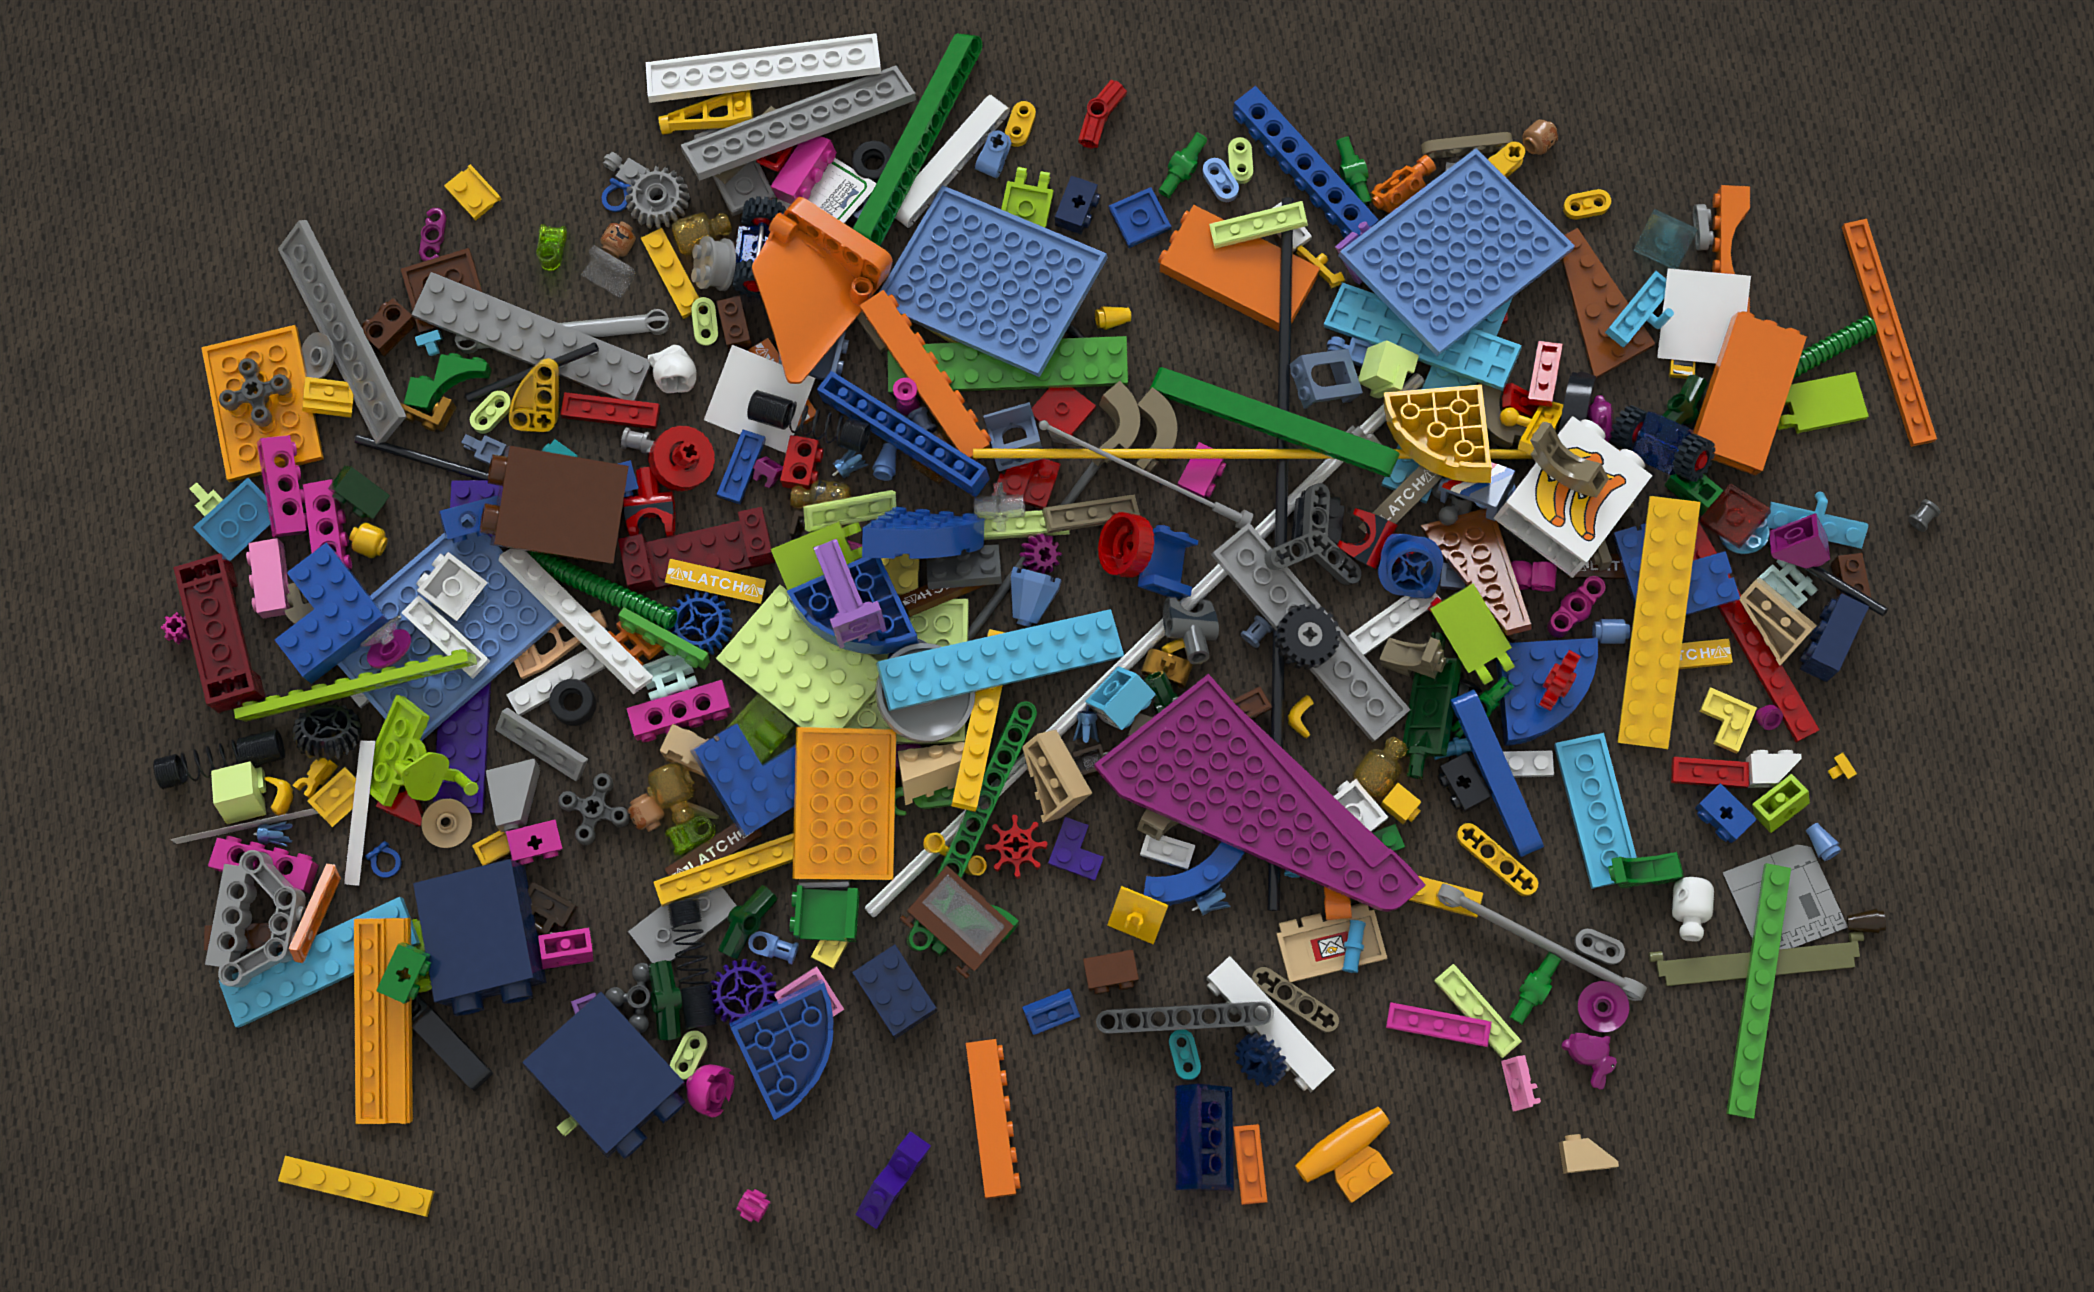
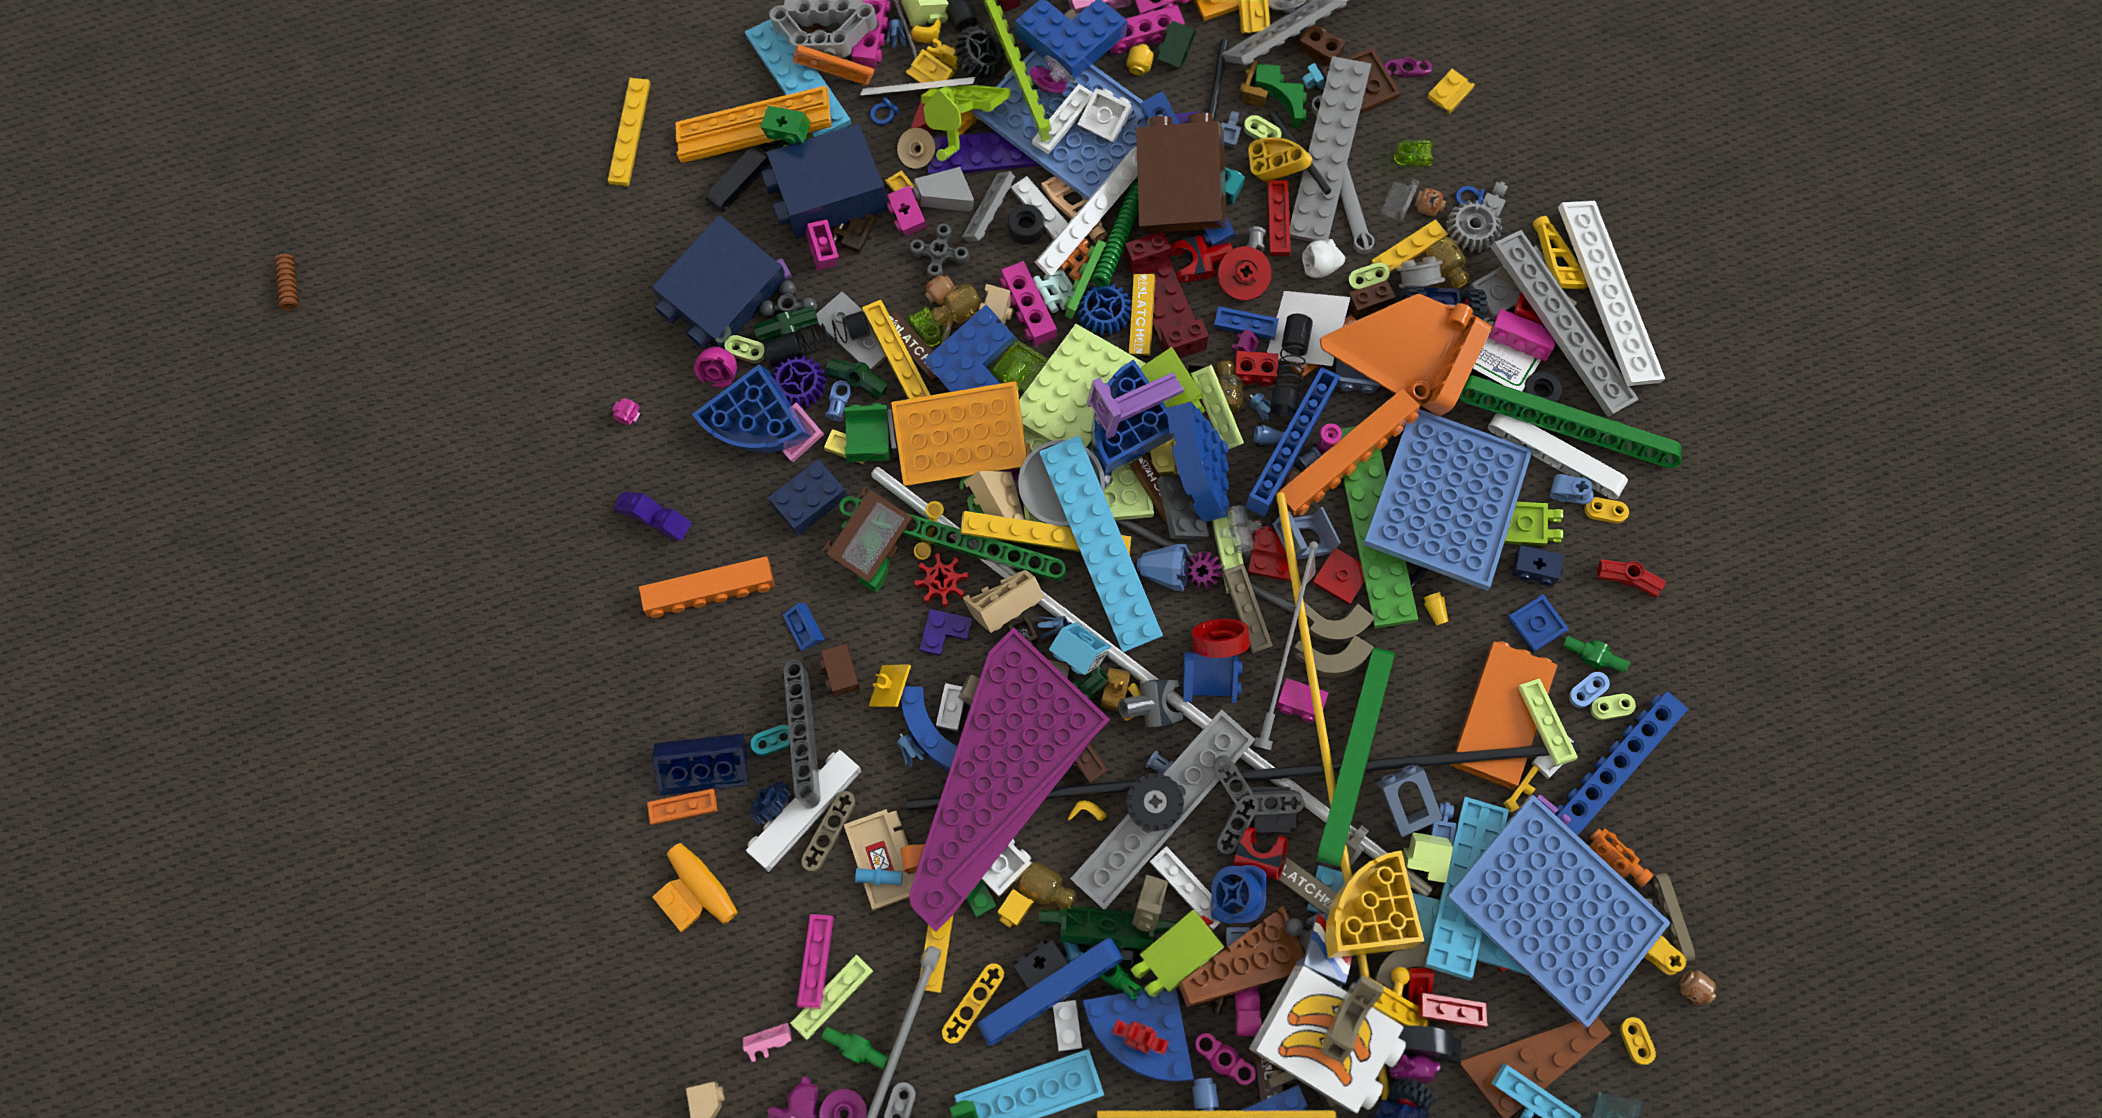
camera: 80 degrees right, 5 degrees down
(1353, 170) = (1623, 811): green pin -> none

